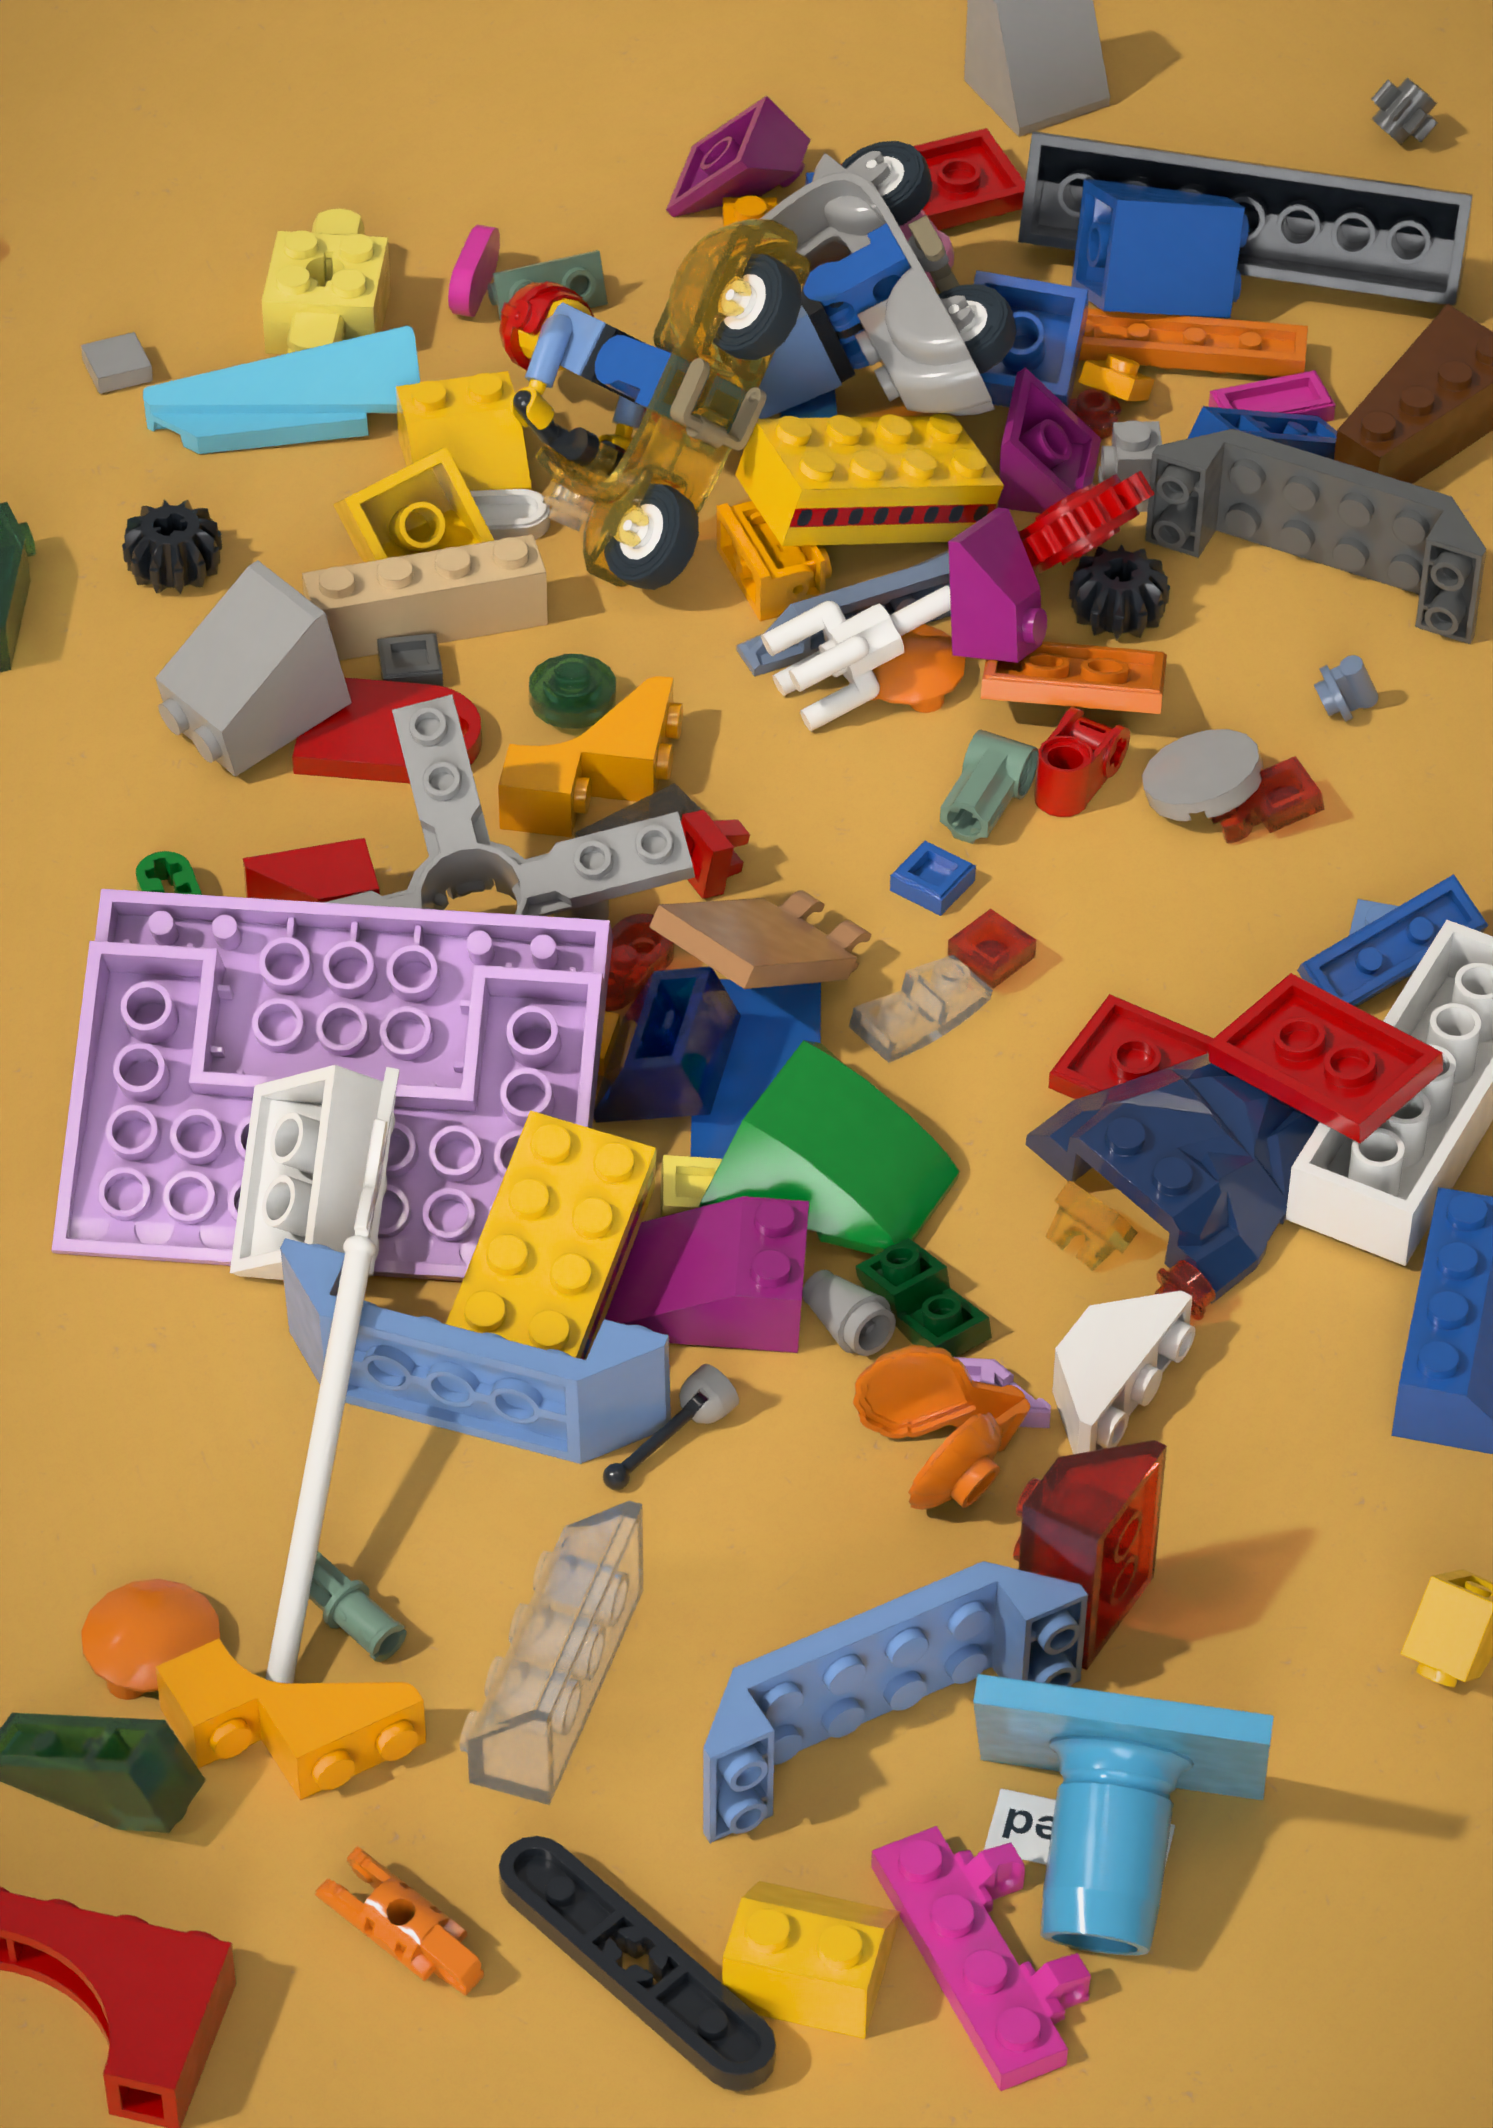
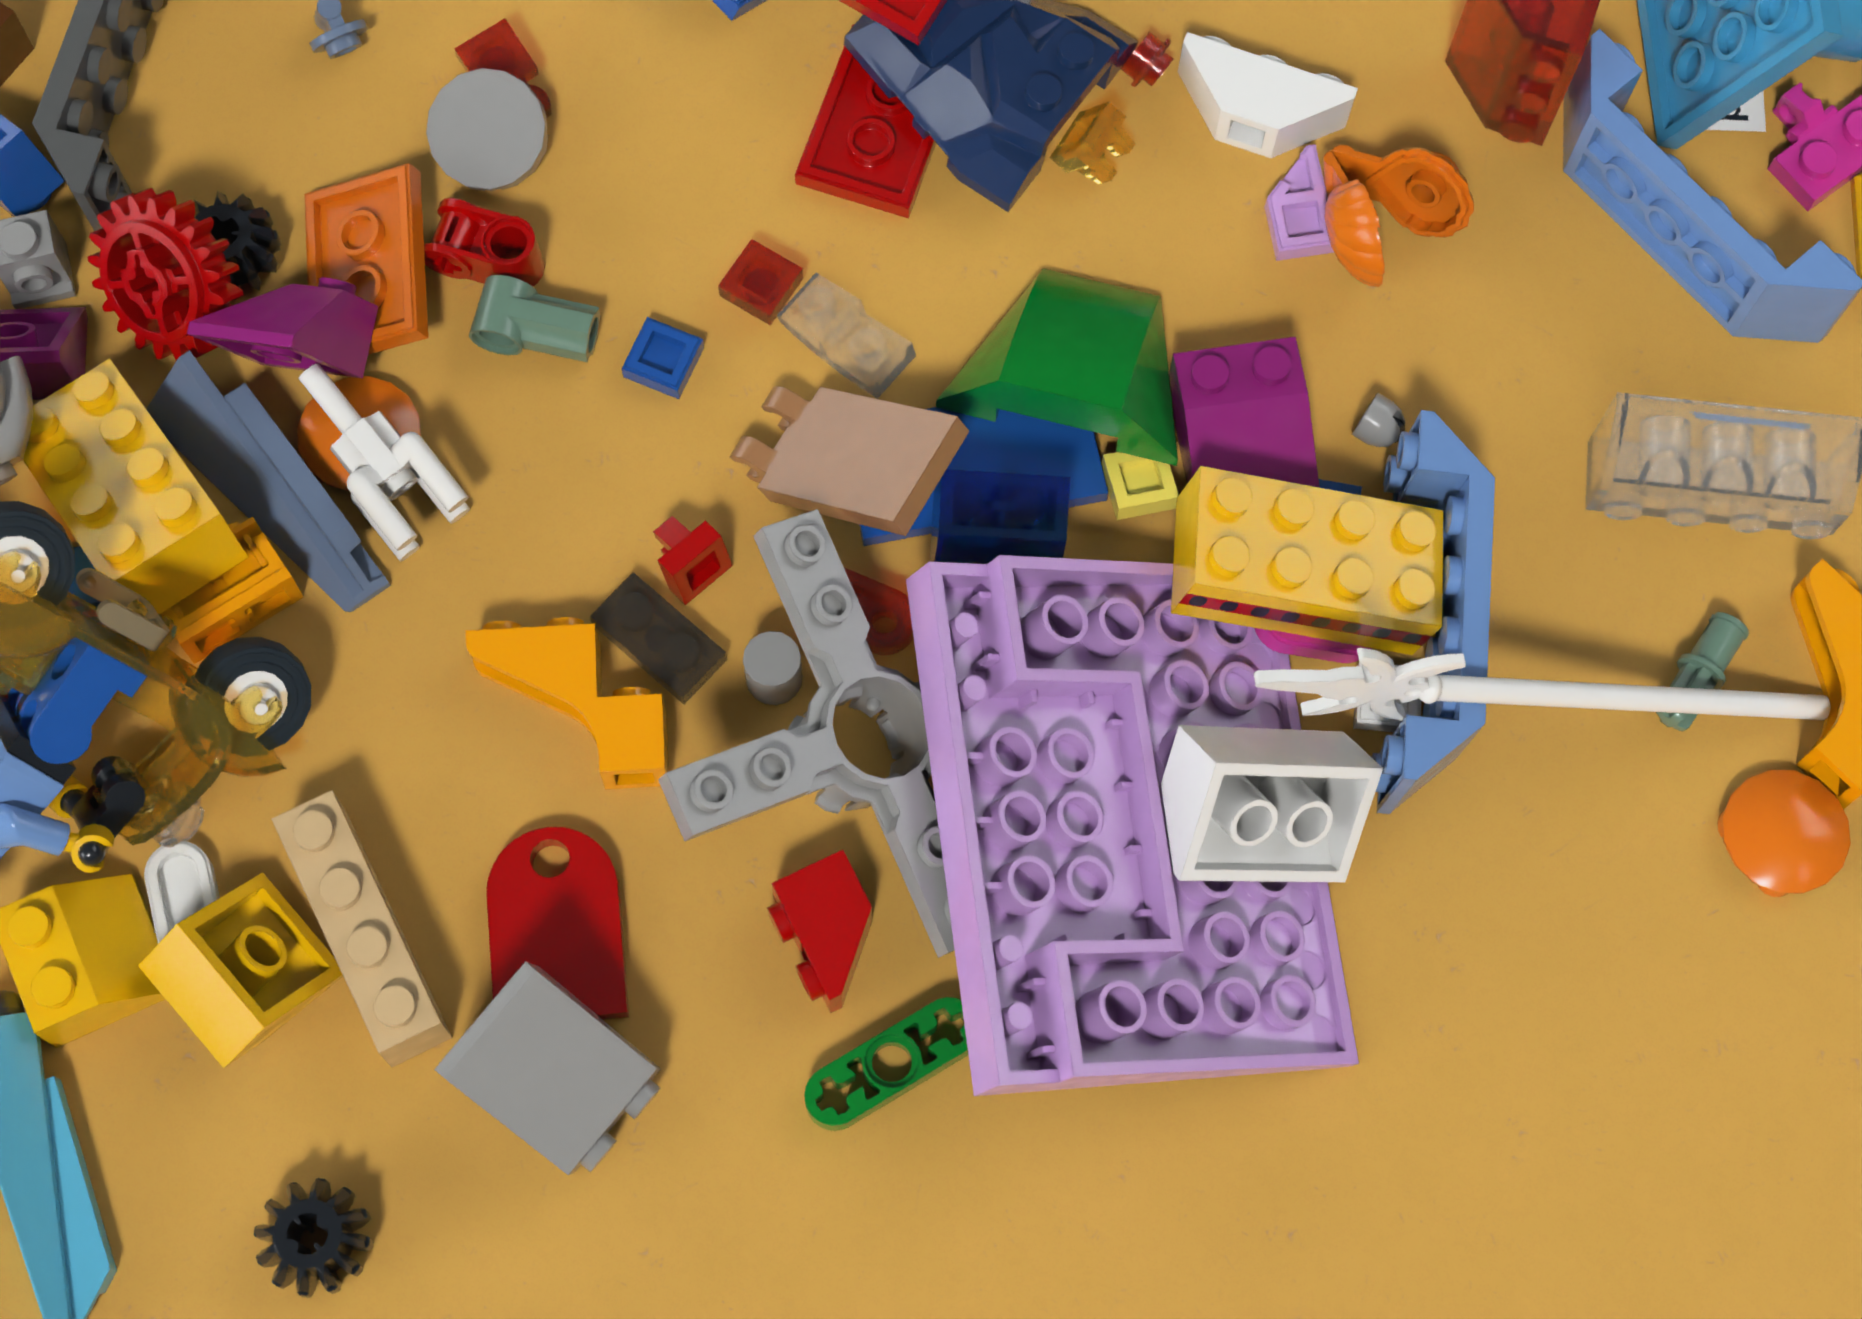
camera: 105 degrees left, 25 degrees up
(410, 659) = (443, 933): dark grey tile -> none
(572, 690) = (471, 746): clear green plate -> none
(852, 1315) = (1253, 316): light grey cone -> none
(922, 1299) = (1211, 269): dark green slope -> none

